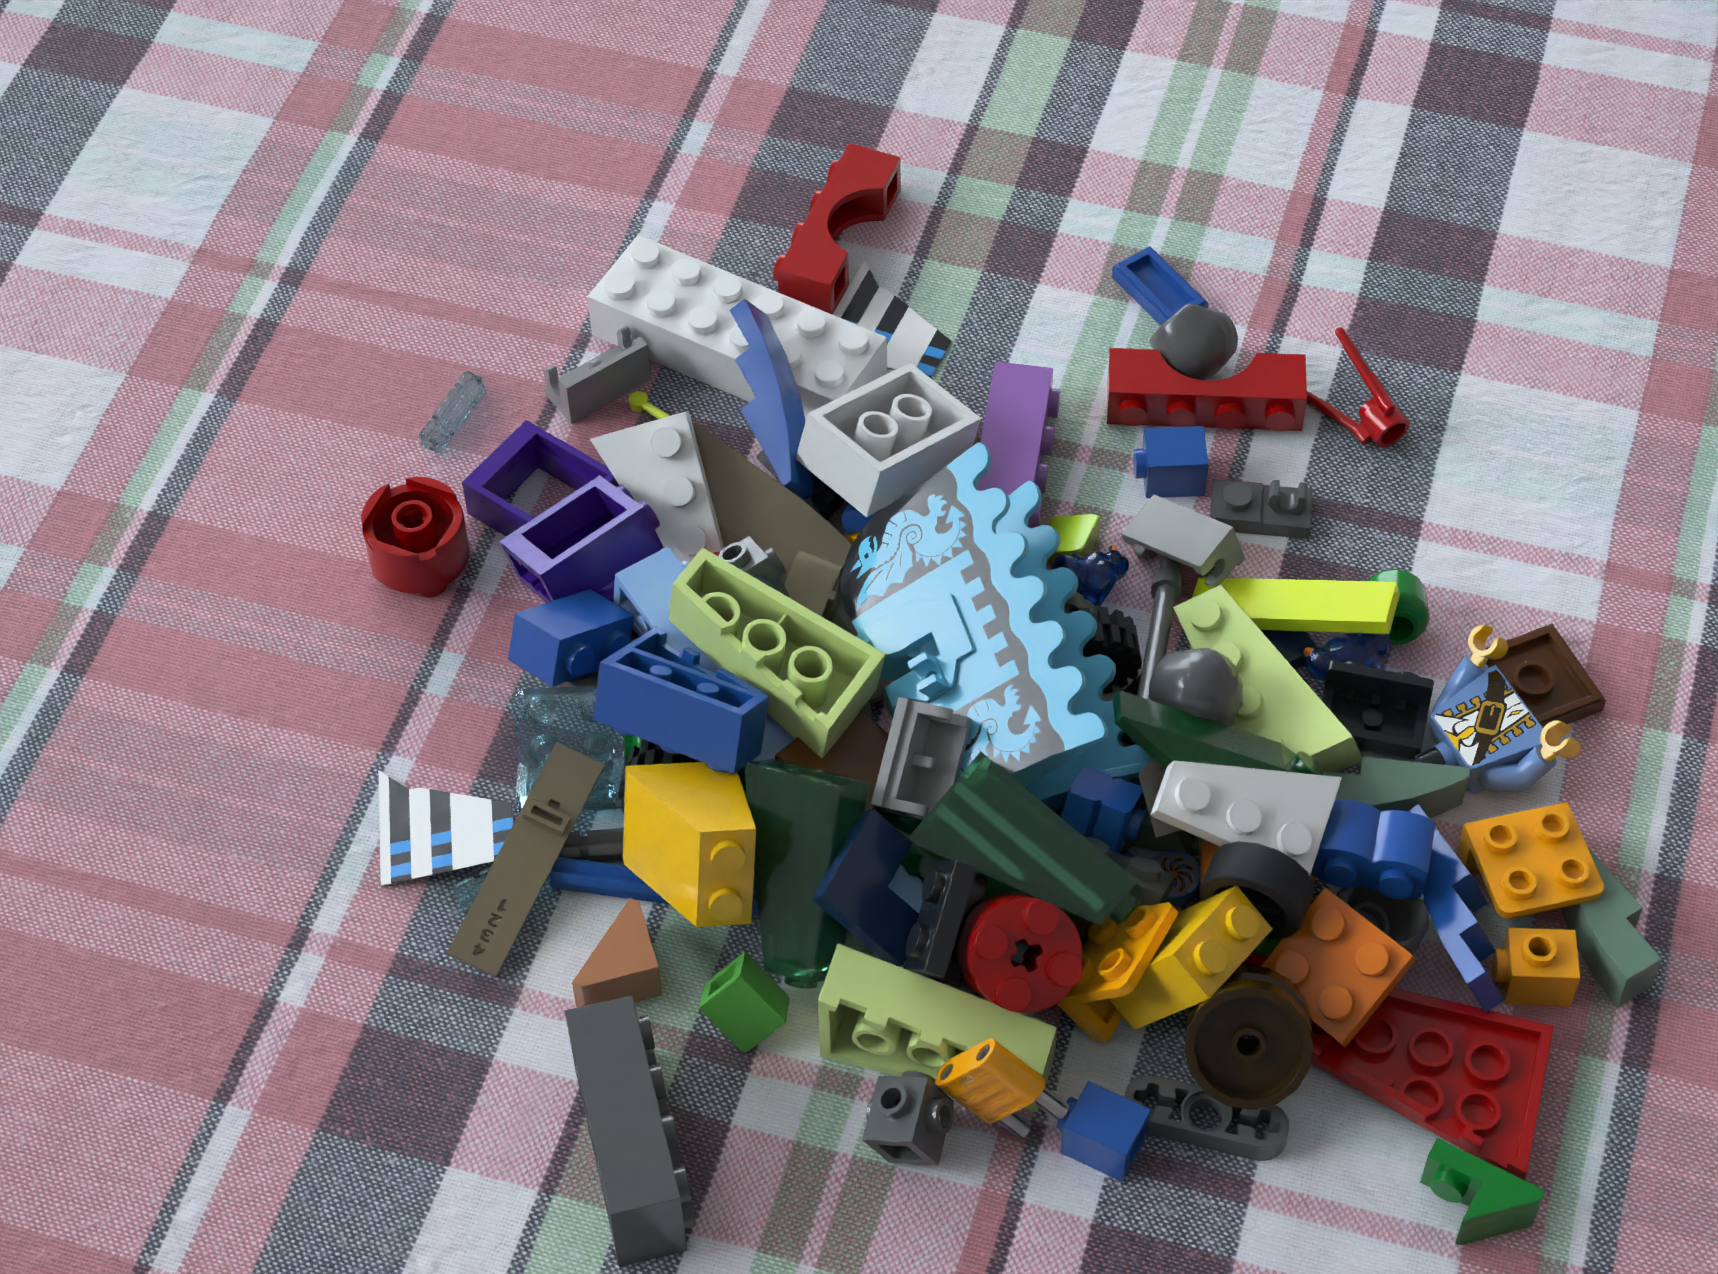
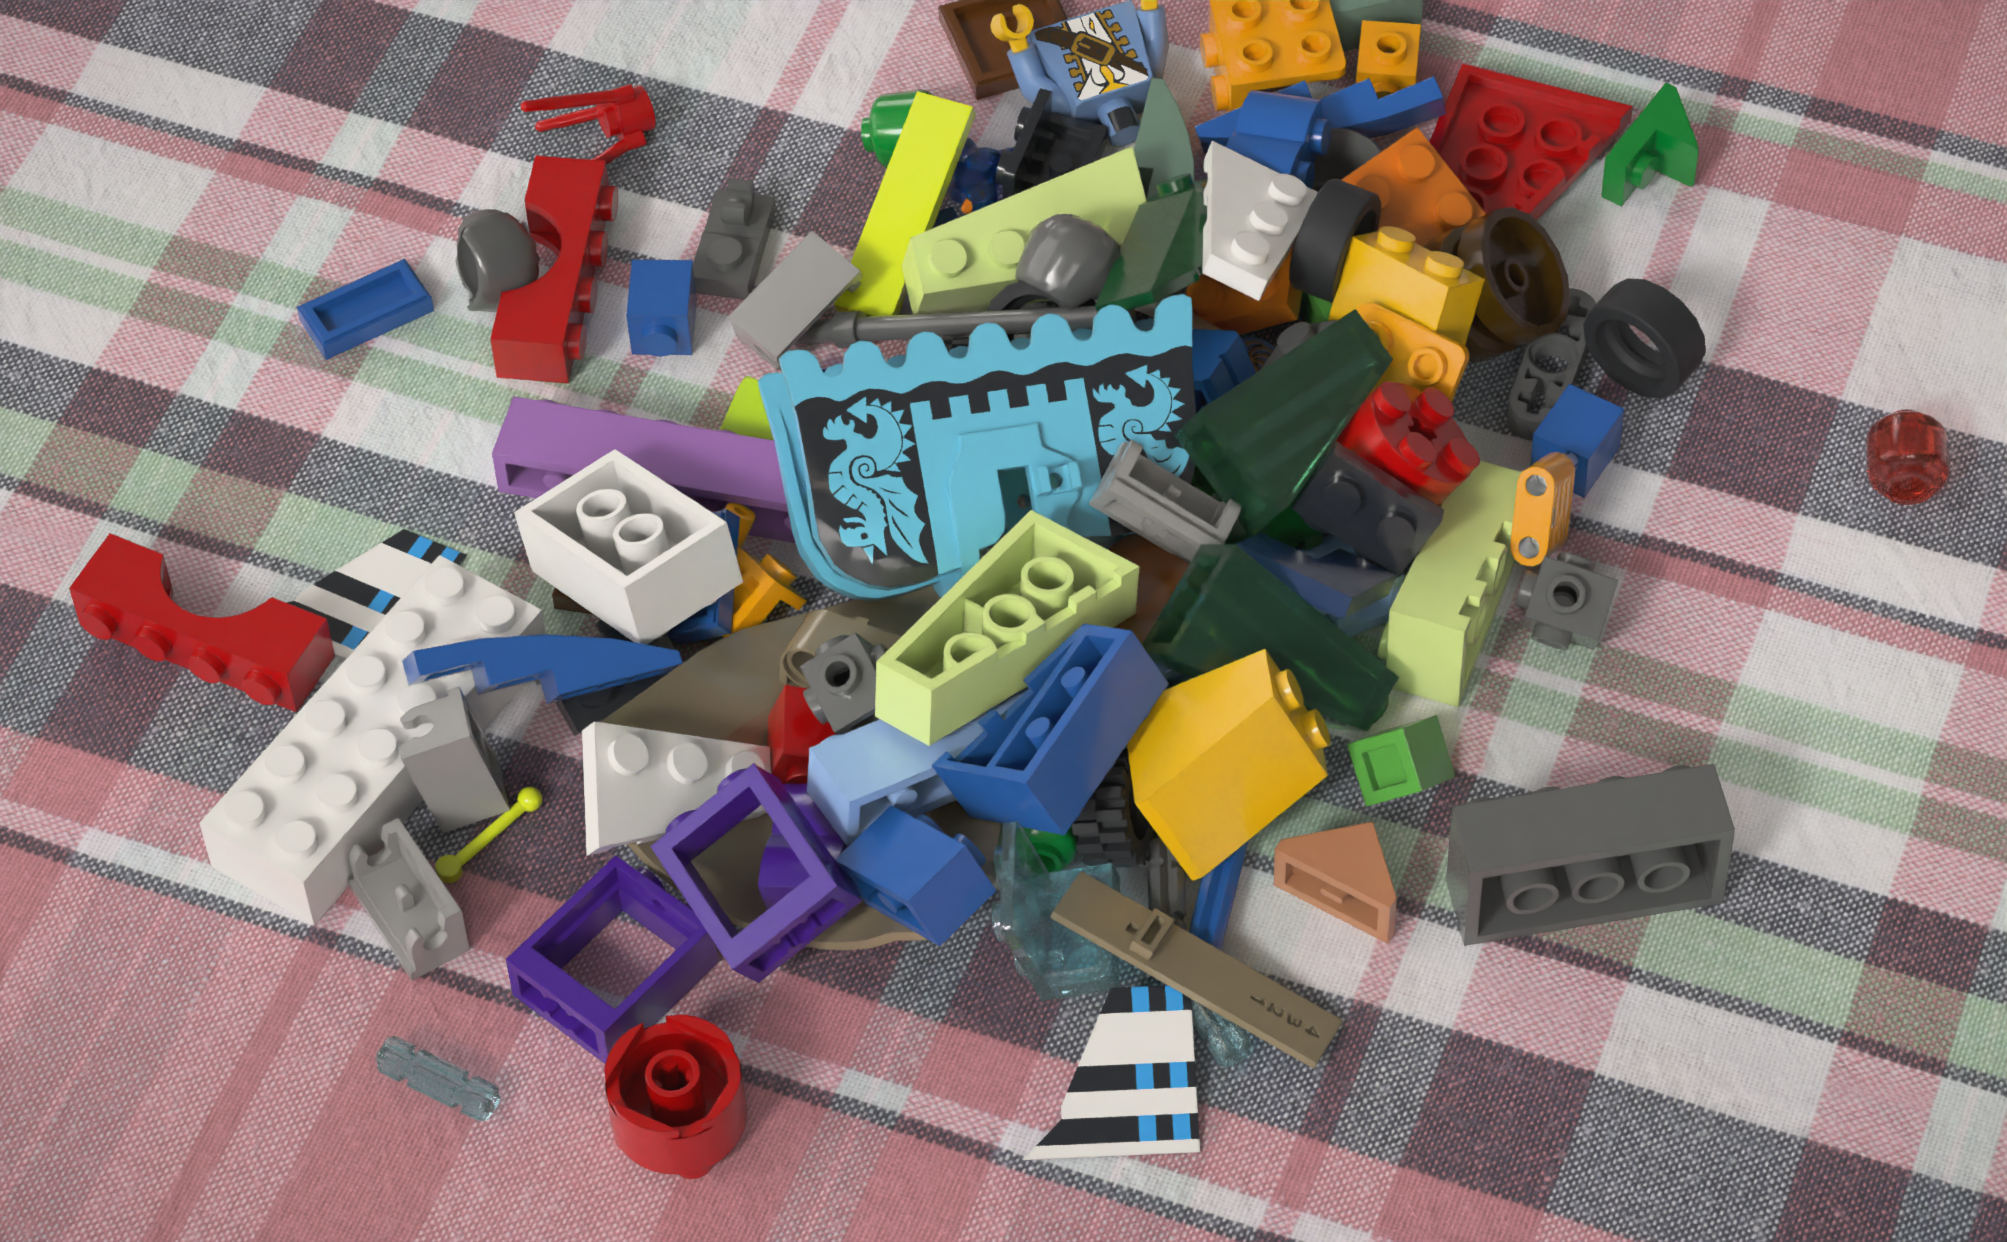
camera: 85 degrees left, 0 degrees up
(701, 370) = (453, 763): none -> light grey hinge
(1217, 1175) = (1660, 318): none -> black tyre

